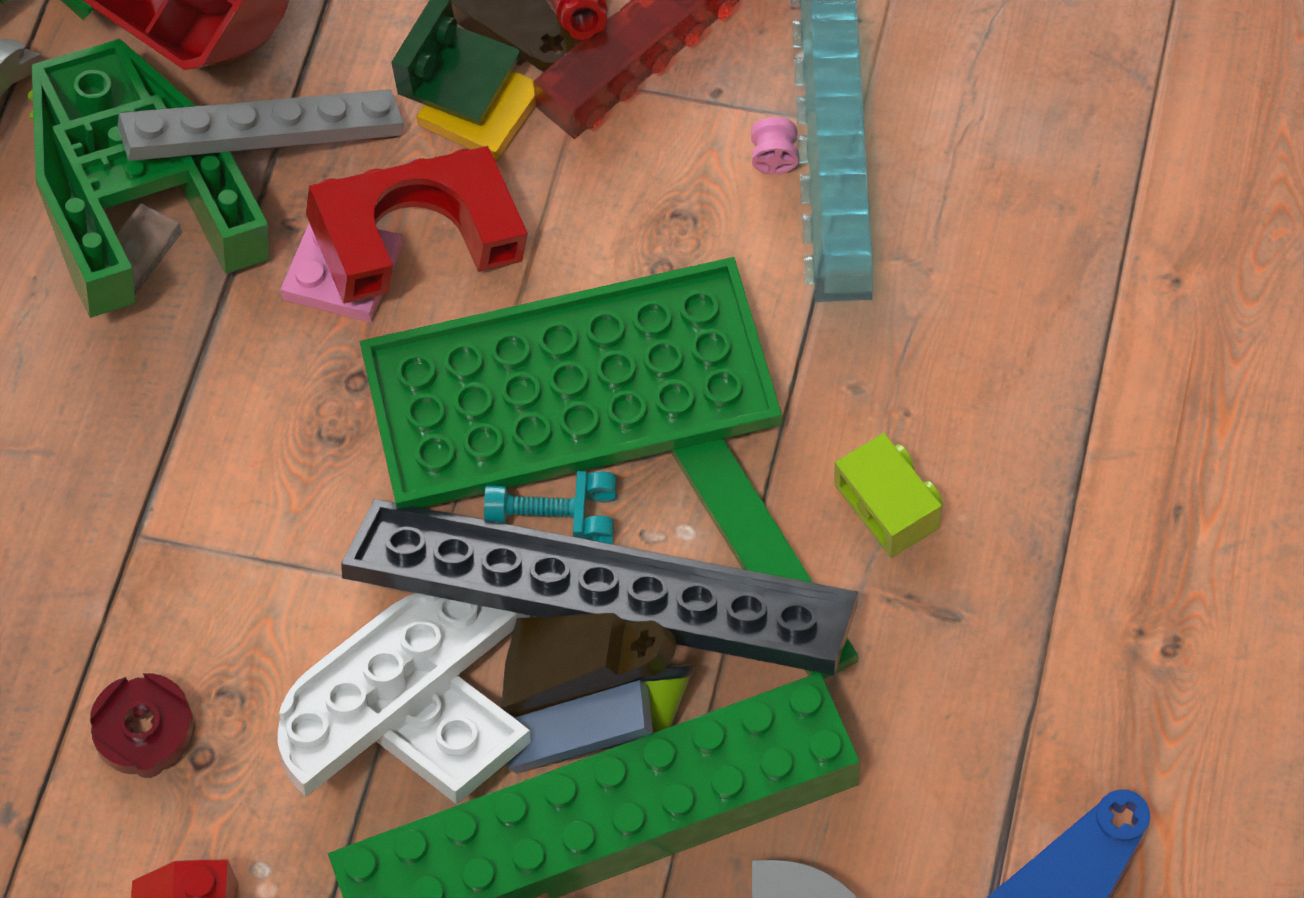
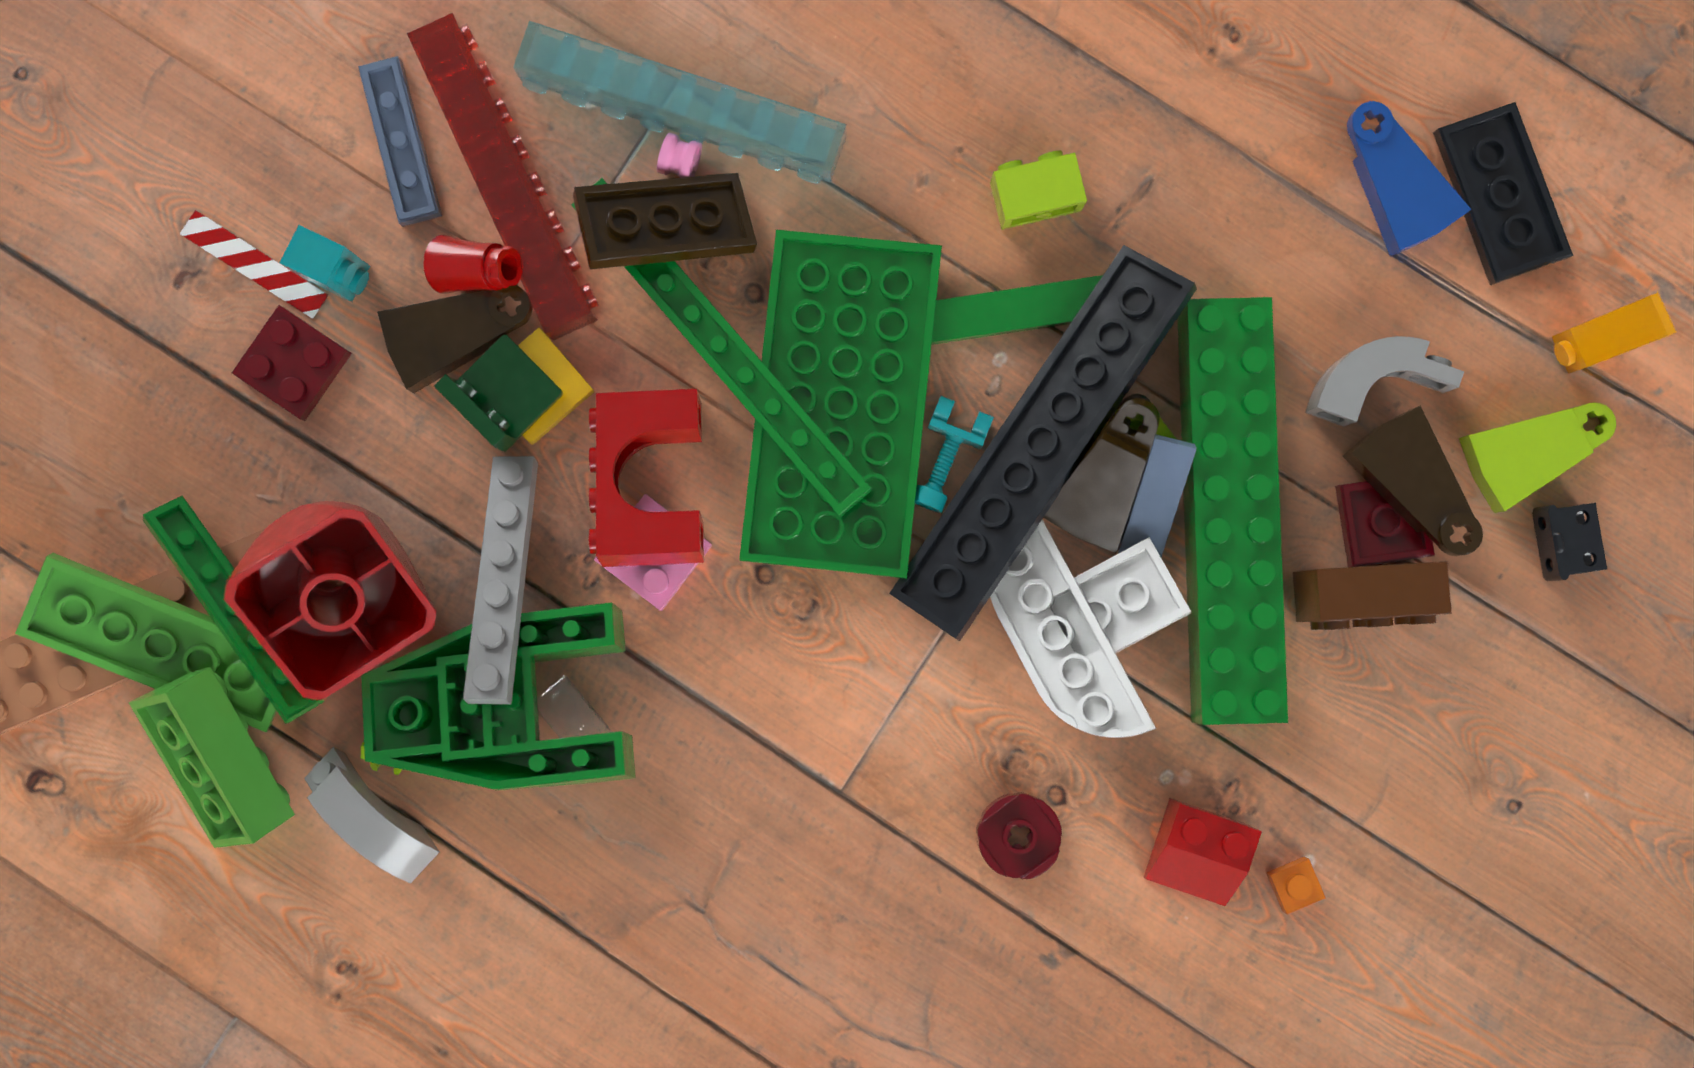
camera: 75 degrees left, 25 degrees up
(578, 248) = (752, 383): none -> green plate
(695, 145) = (663, 220): none -> dark brown plate

